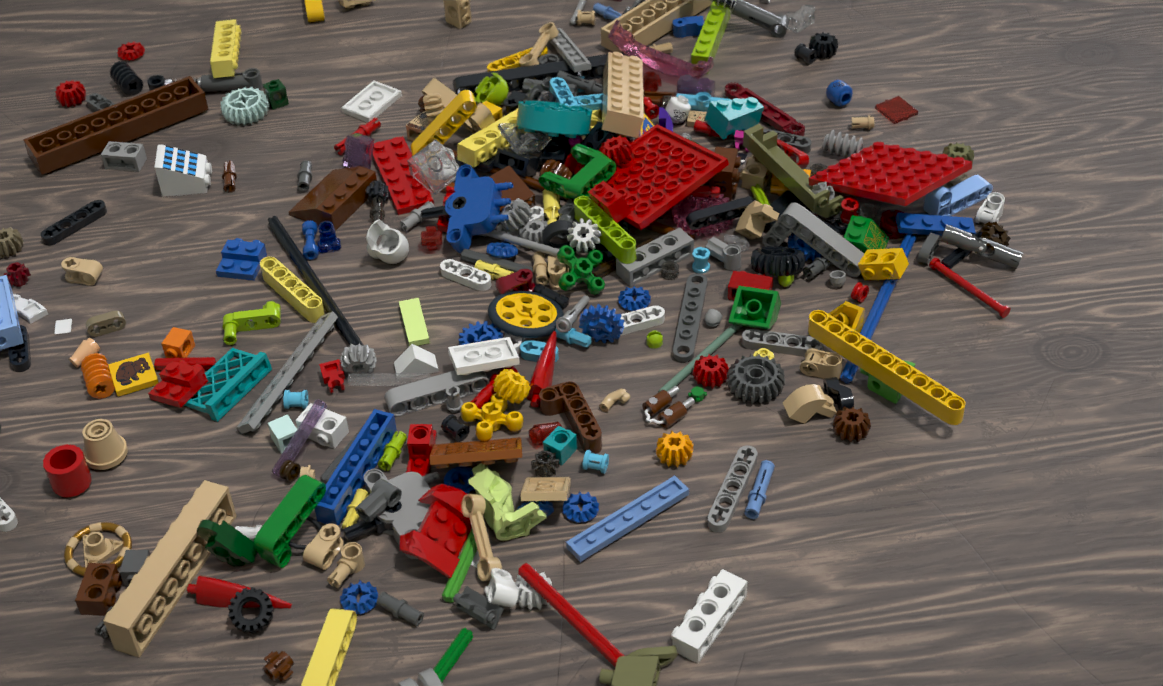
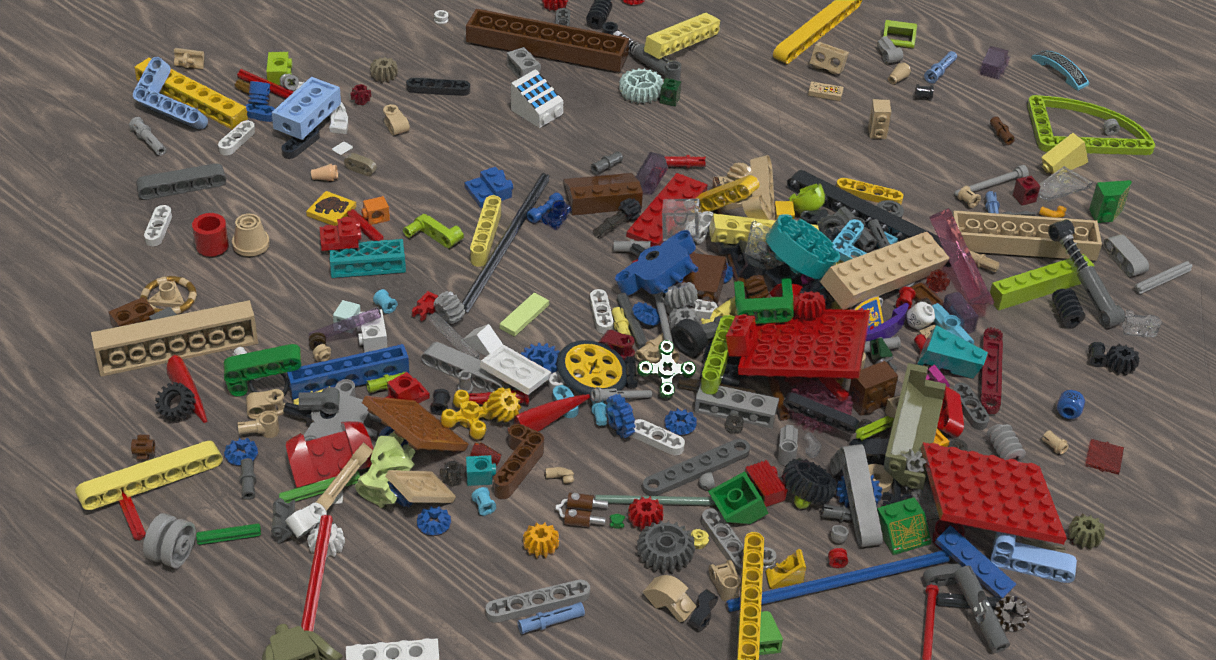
camera: 45 degrees right, 0 degrees up
(97, 376) = (308, 192): orange piece -> none
(227, 543) = (213, 348): dark green piece -> none
(229, 177) = (563, 126): reddish brown axle -> none
(284, 377) = (399, 282): light grey plate -> none
(371, 101) = (727, 145): white tile -> none
(383, 18) = (825, 91): none -> tan tile
(392, 247) = (581, 255): white piece -> none
(431, 237) = (614, 266): clear red gear -> none
(547, 33) = (915, 186): tan piece -> none
(570, 52) = (910, 209): light grey tile -> none
(591, 238) = (693, 345): white gear -> none
(627, 518) = (446, 554): medium blue plate -> none
(654, 339) = (646, 460): lime hinge -> none
(687, 26) = (1034, 259): blue leg -> none
(701, 258) = (762, 438): medium azure bush -> none
(749, 39) = (1068, 307): none -> black piece
(754, 219) = (838, 437): tan brick -> none
(849, 210) = (921, 494): red bush -> none
(851, 424) = (677, 637): reddish brown gear -> none
(883, 264) = (881, 552): yellow brick -> none
(991, 208) = (1042, 592): white piece -> none

